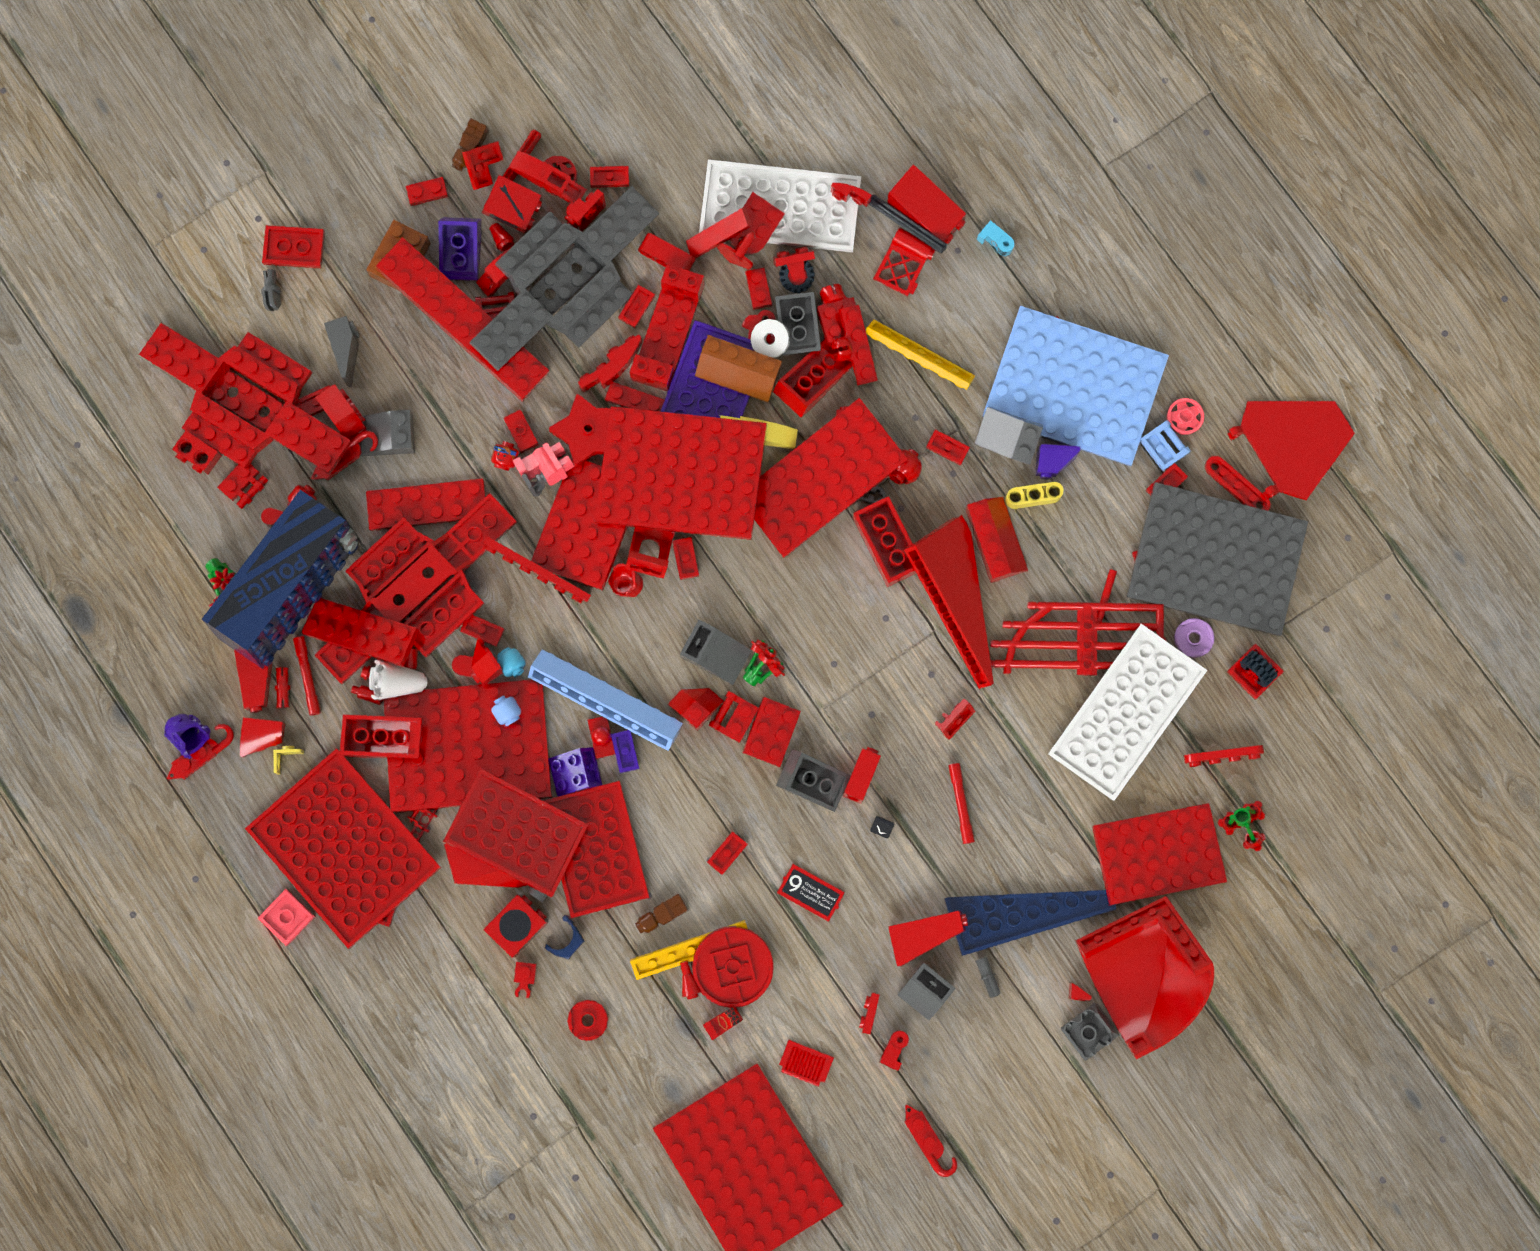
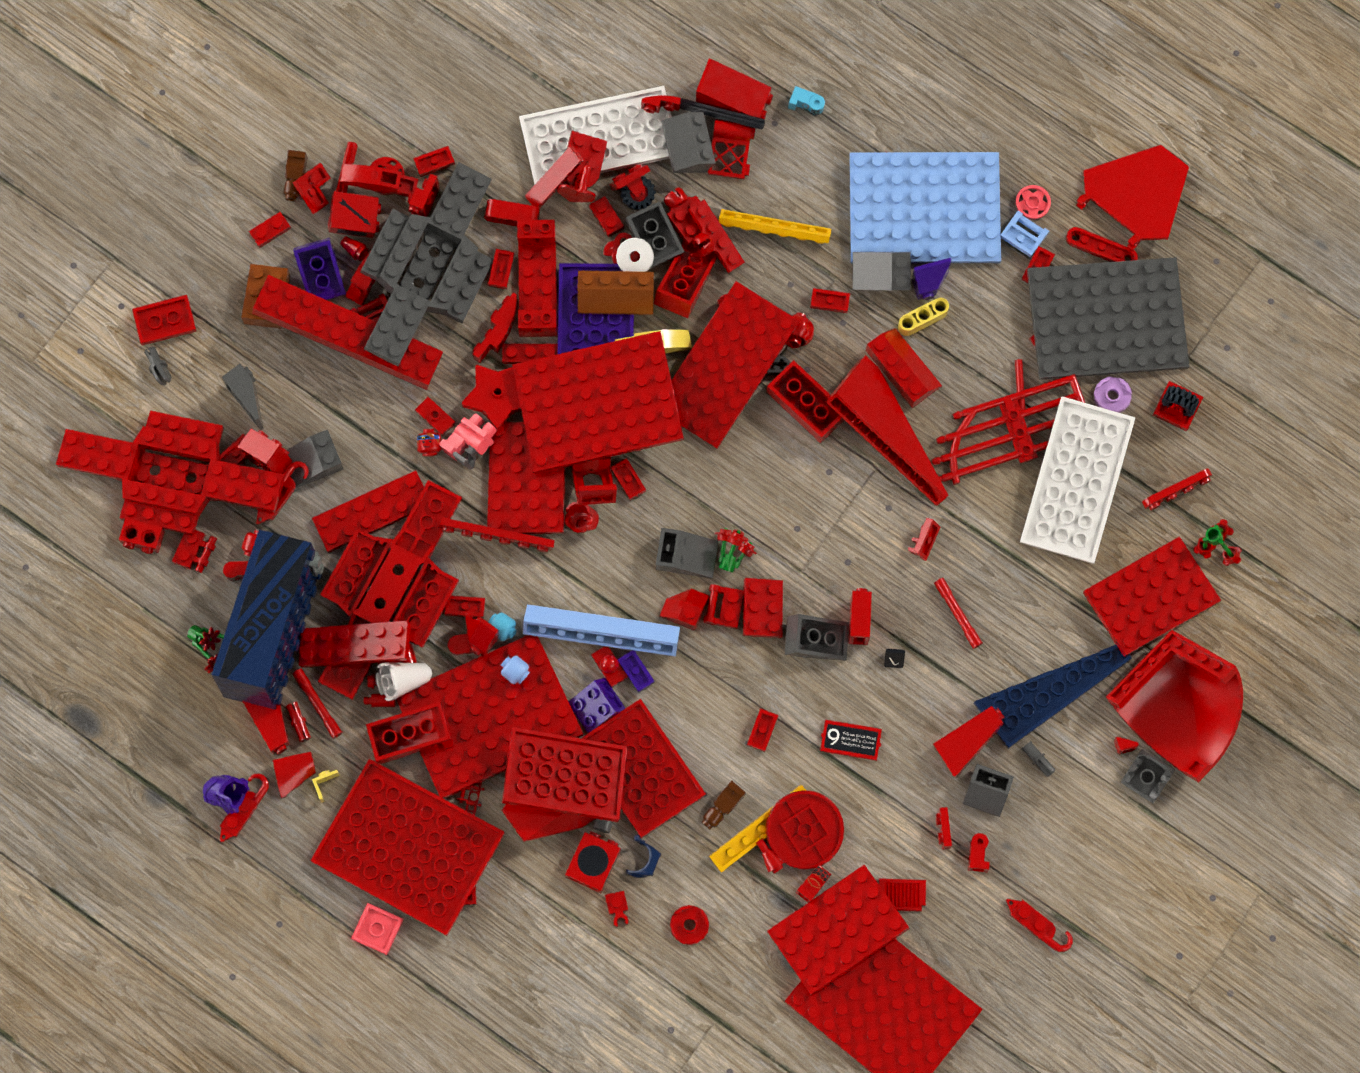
camera: 20 degrees left, 5 degrees down
(729, 1078) = (838, 930): none -> red plate
(864, 242) = (688, 143): none -> dark grey slope

